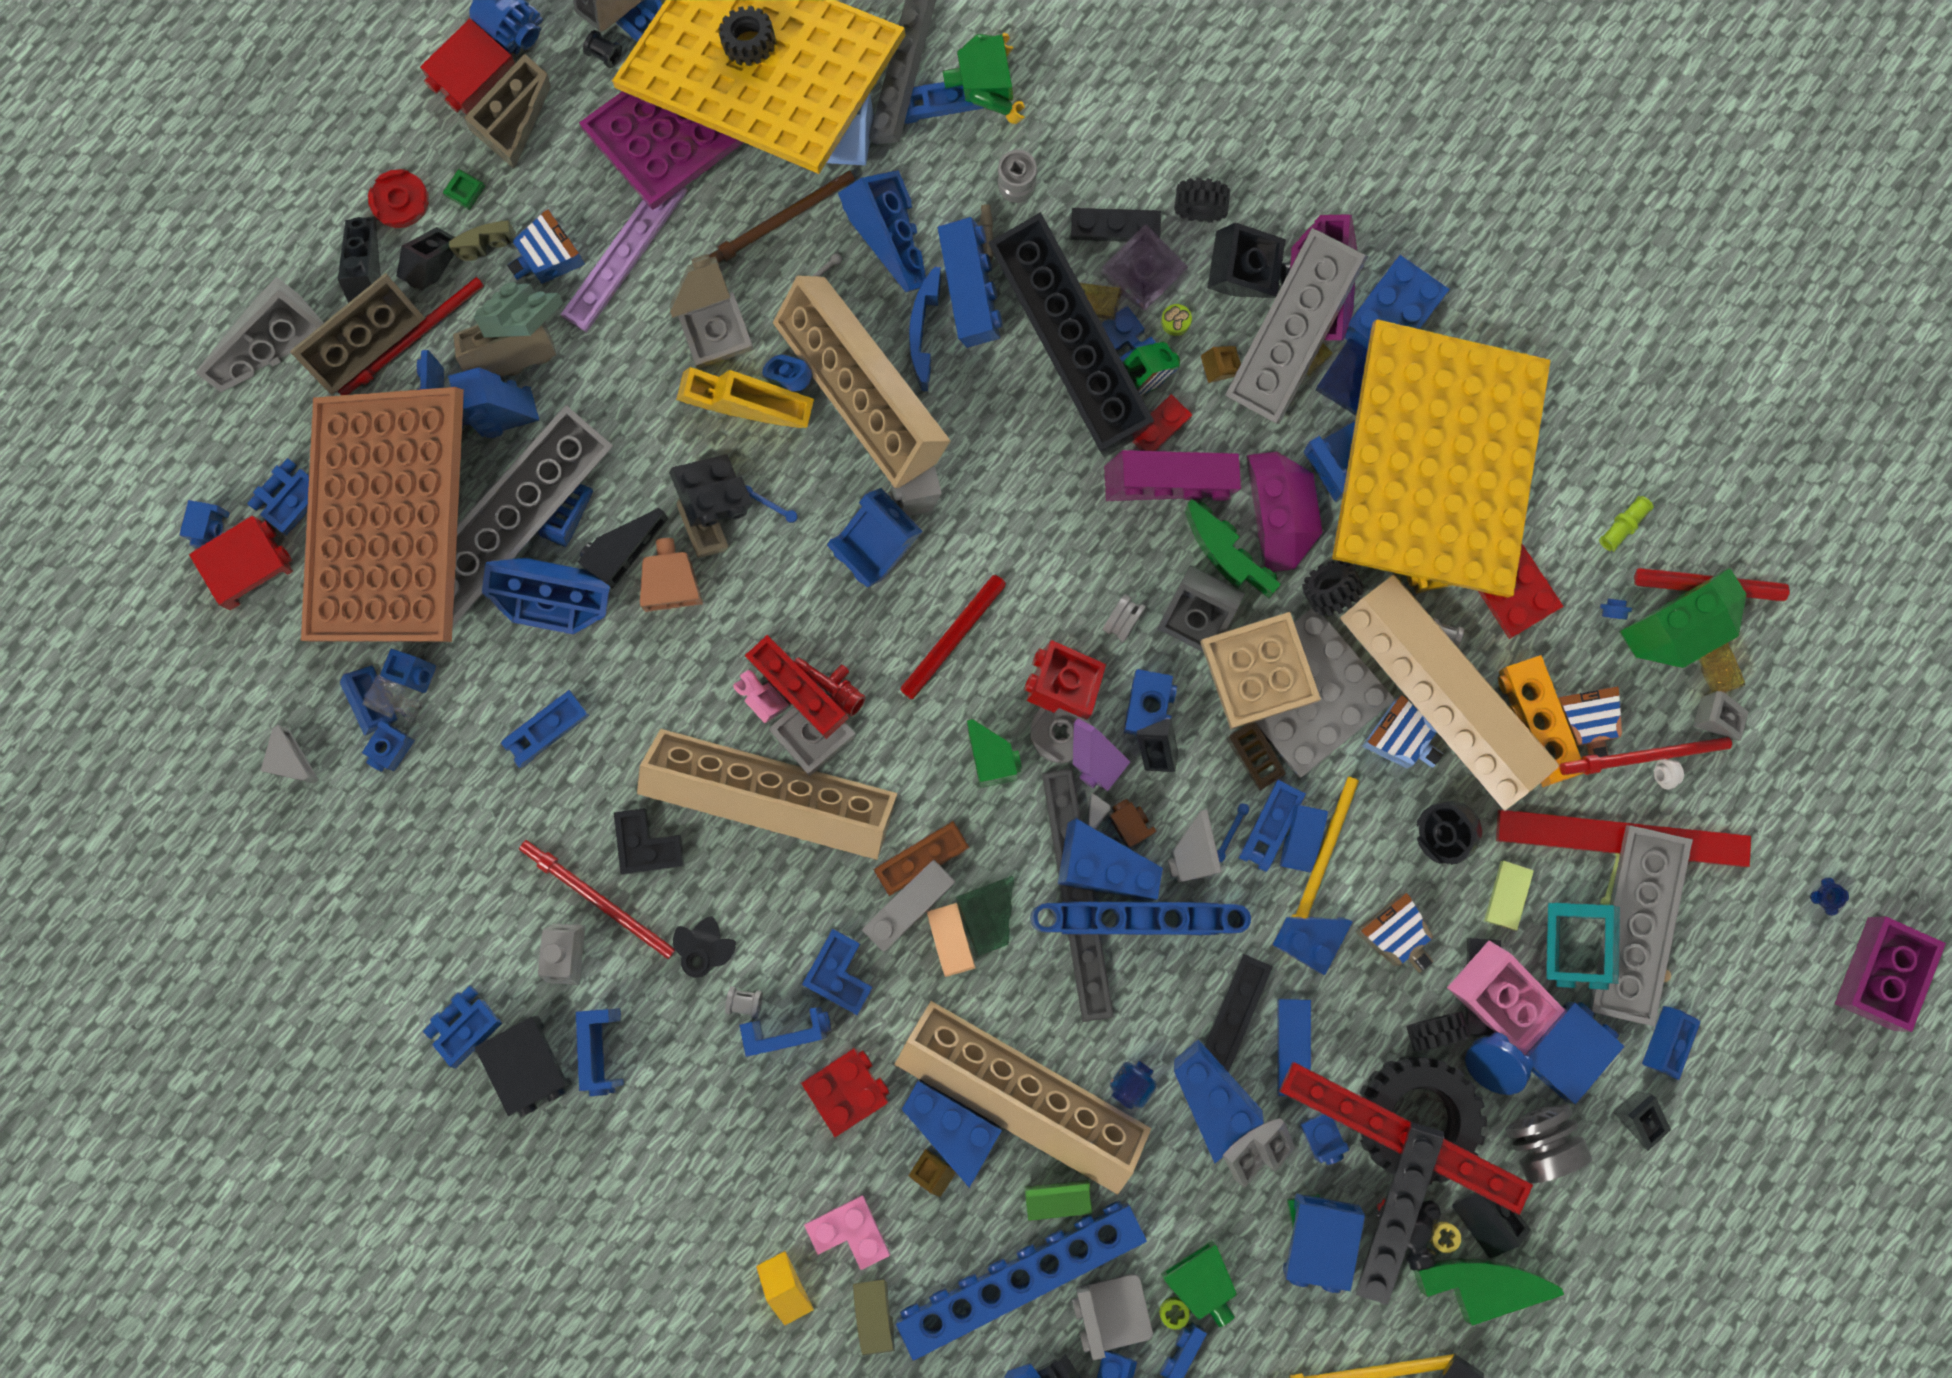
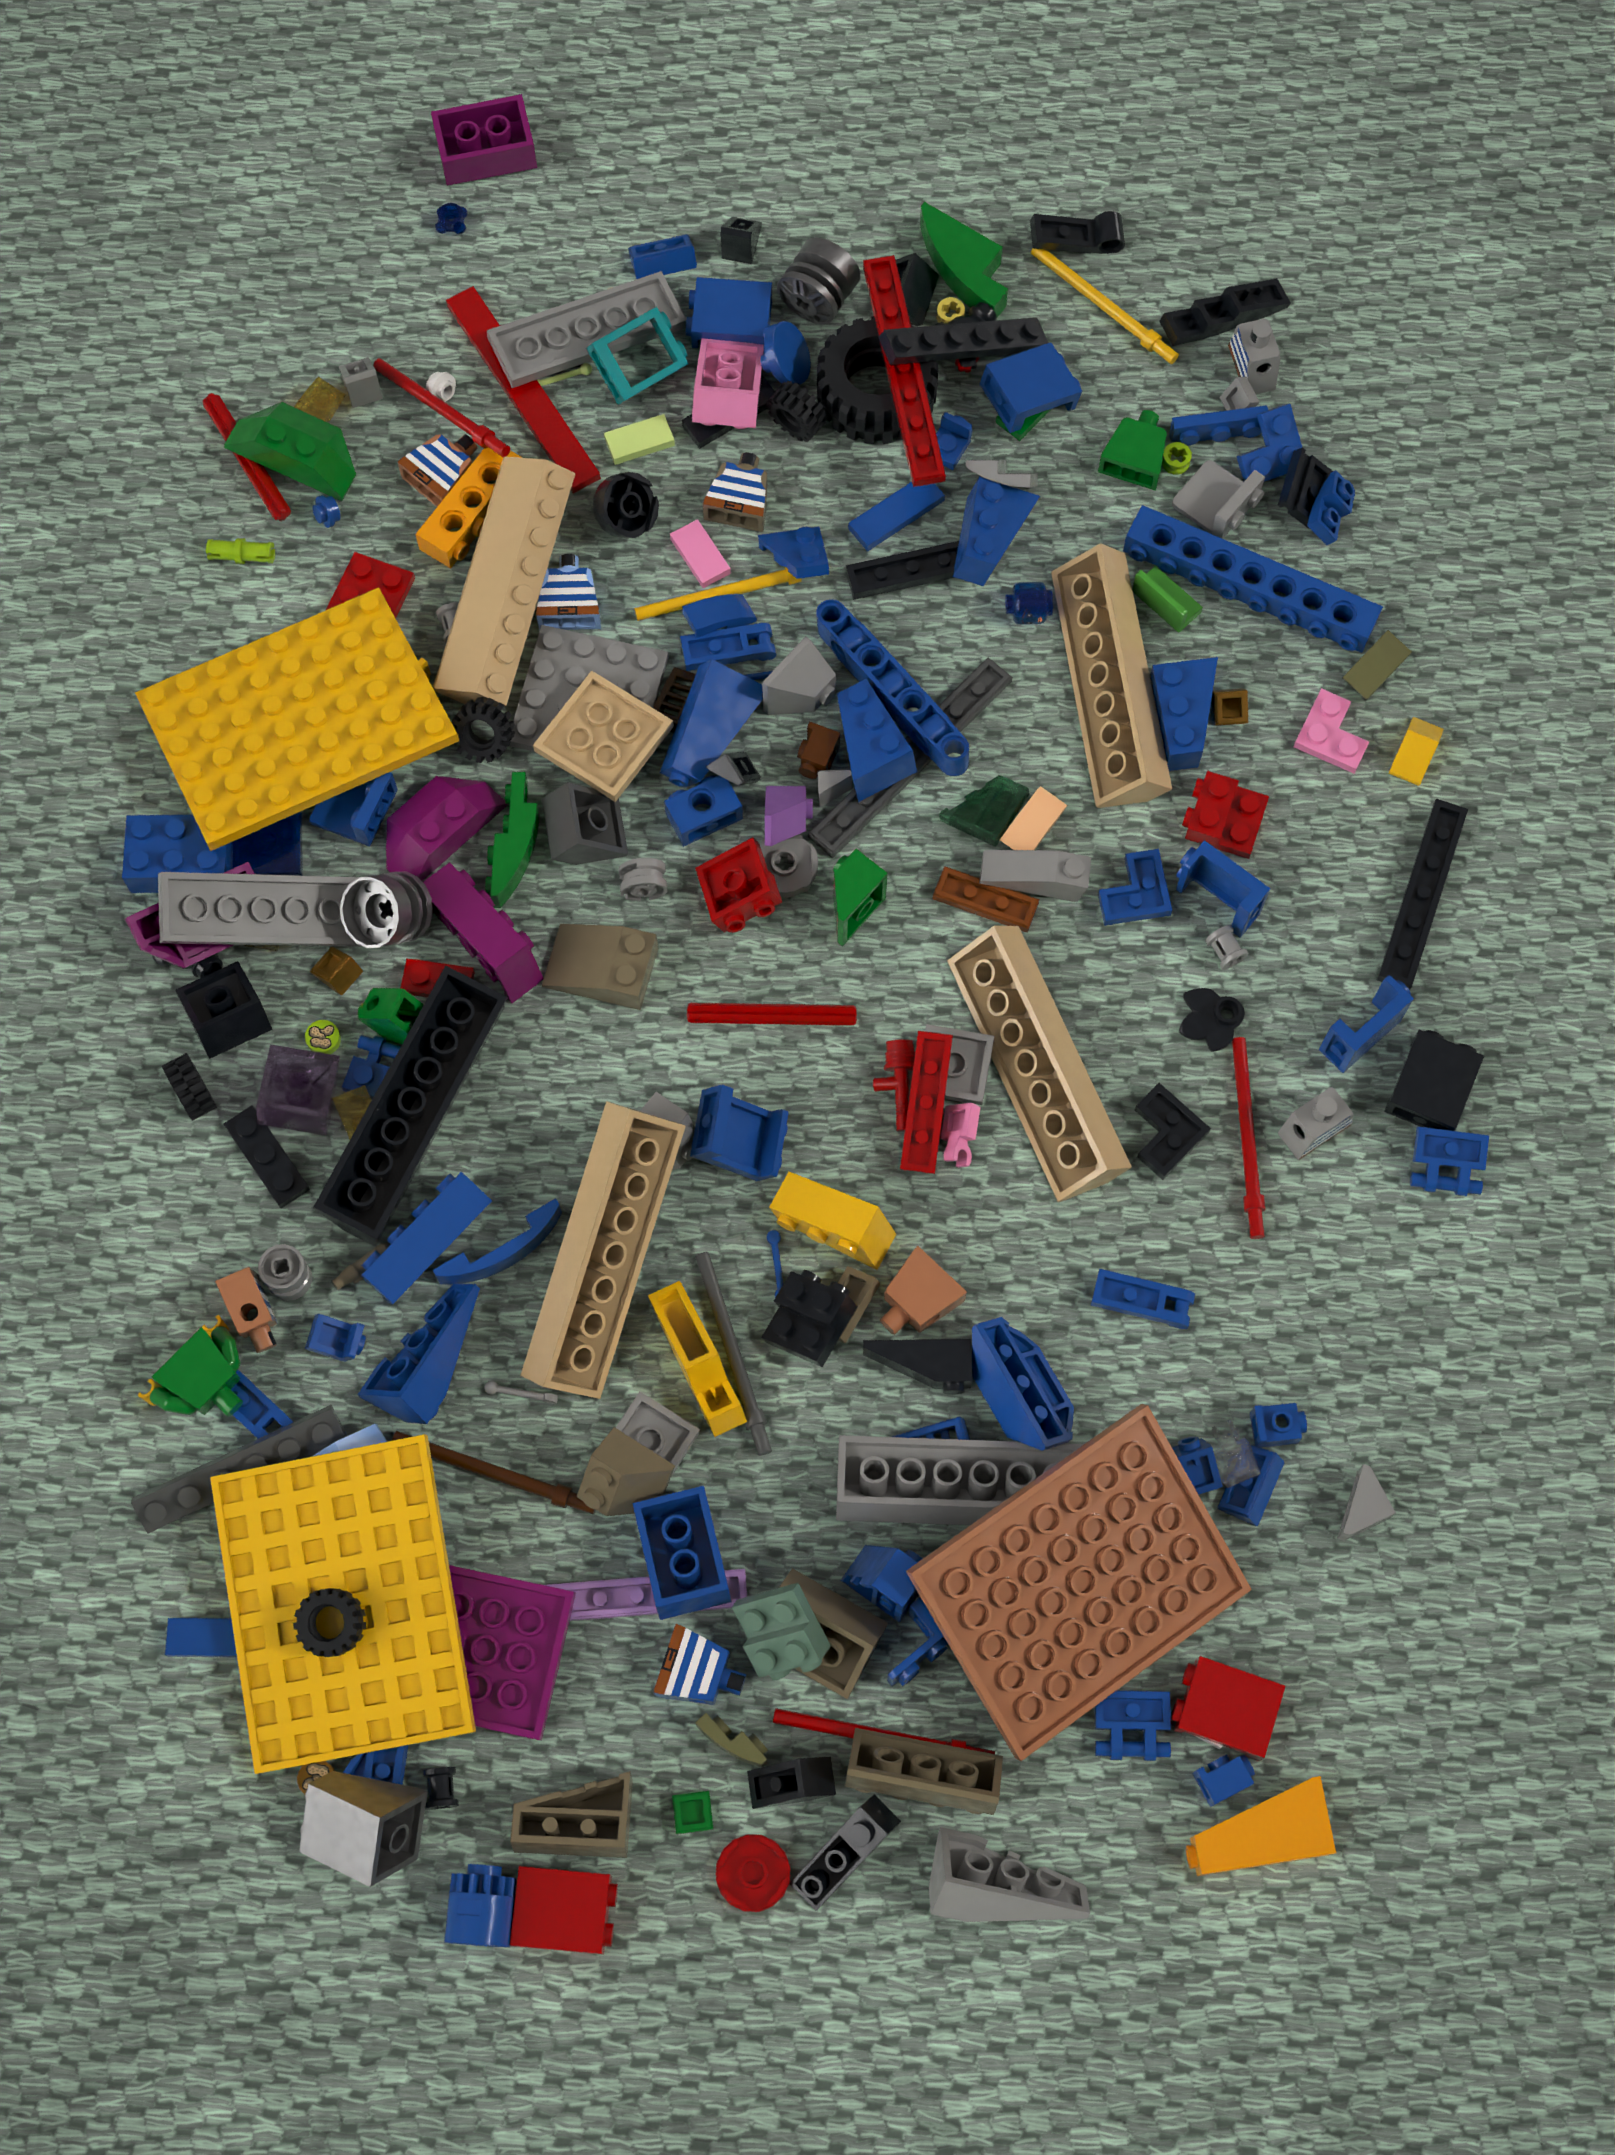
camera: 130 degrees left, 10 degrees down
(150, 522) = (1273, 1832): none -> light orange slope
(620, 289) = (681, 1553): none -> blue brick
(668, 1188) = (1423, 892): none -> black plate
(678, 409) = (754, 1416): none -> dark grey bar
(766, 557) = (833, 1219): none -> yellow wedge
(787, 372) = (642, 1332): blue plate -> none
(947, 180) = (335, 1338): none -> blue bracket
(1010, 132) = (241, 1294): none -> nougat torso
(1082, 545) = (602, 963): none -> dark tan slope
(1213, 758) = (710, 719): none -> blue slope
(1233, 415) = (386, 909): none -> flat silver wheel
(1370, 866) = (700, 553): none -> bright pink tile

